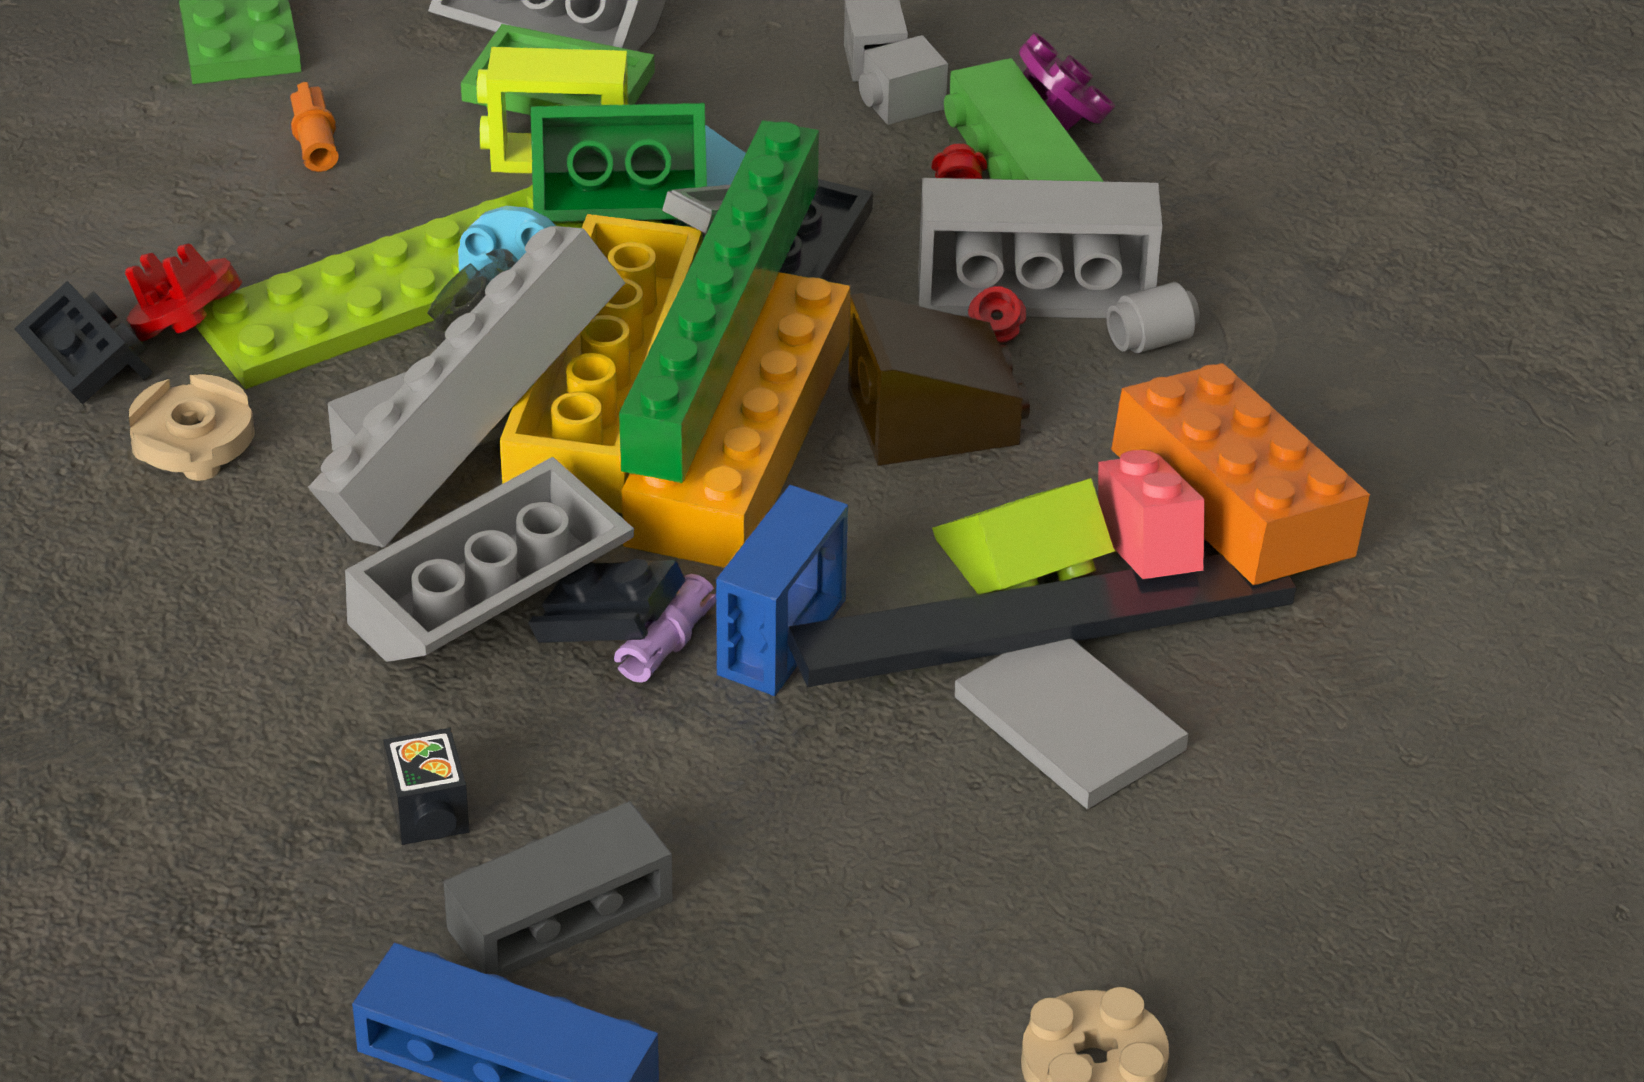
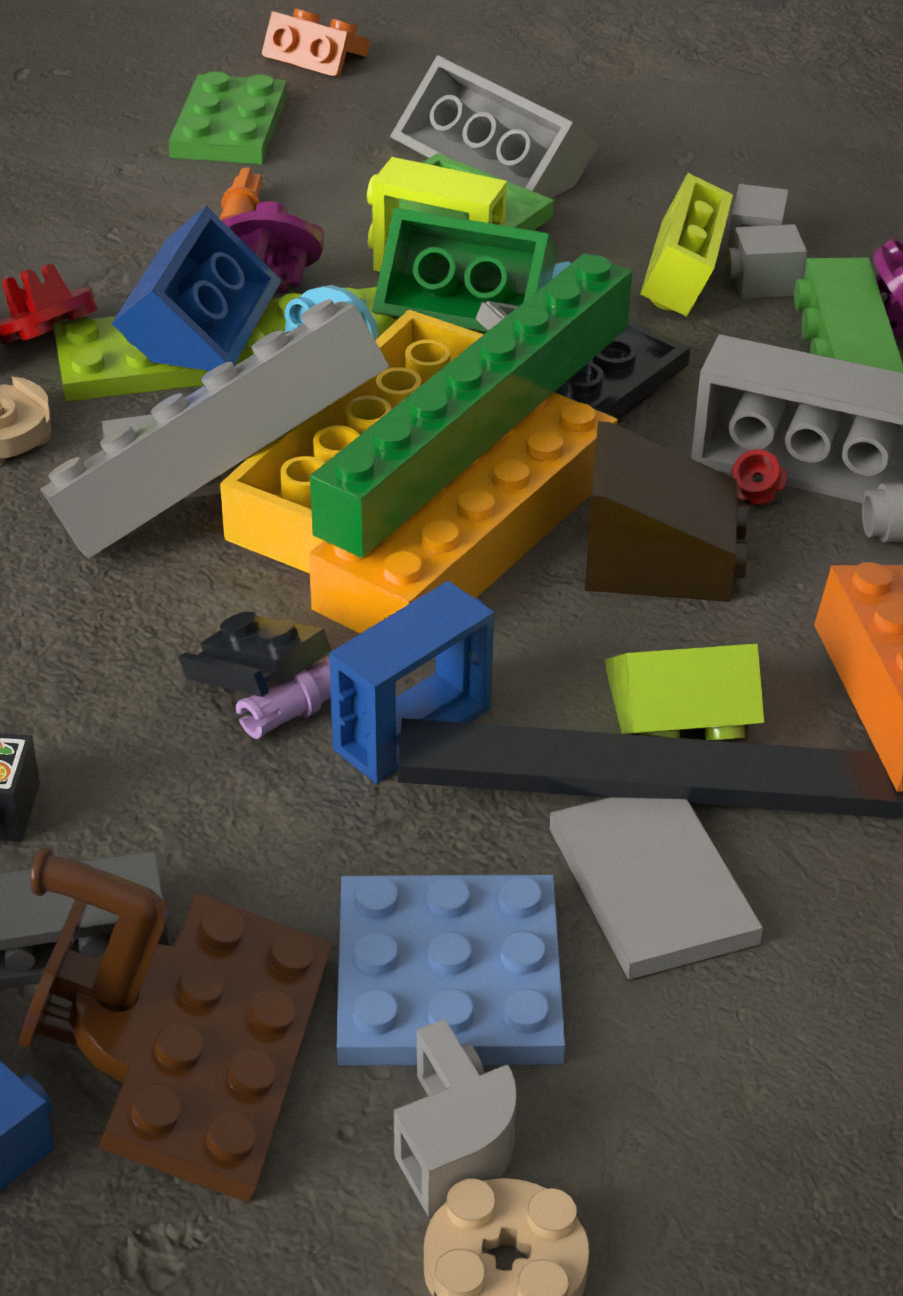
camera: 20 degrees right, 0 degrees up
(351, 245) = (198, 297): none -> blue slope
(390, 166) = (279, 240): none -> magenta plate
(479, 561) = (150, 585): light grey slope -> none
(728, 928) = (187, 1029): none -> reddish brown plate
(821, 76) = (687, 245): none -> neon yellow brick
(929, 840) = (454, 952): none -> medium blue plate
(959, 162) = (784, 335): red plate -> none
(1008, 956) = (461, 1125): none -> light grey brick
(1151, 514) = (814, 696): coral brick -> none

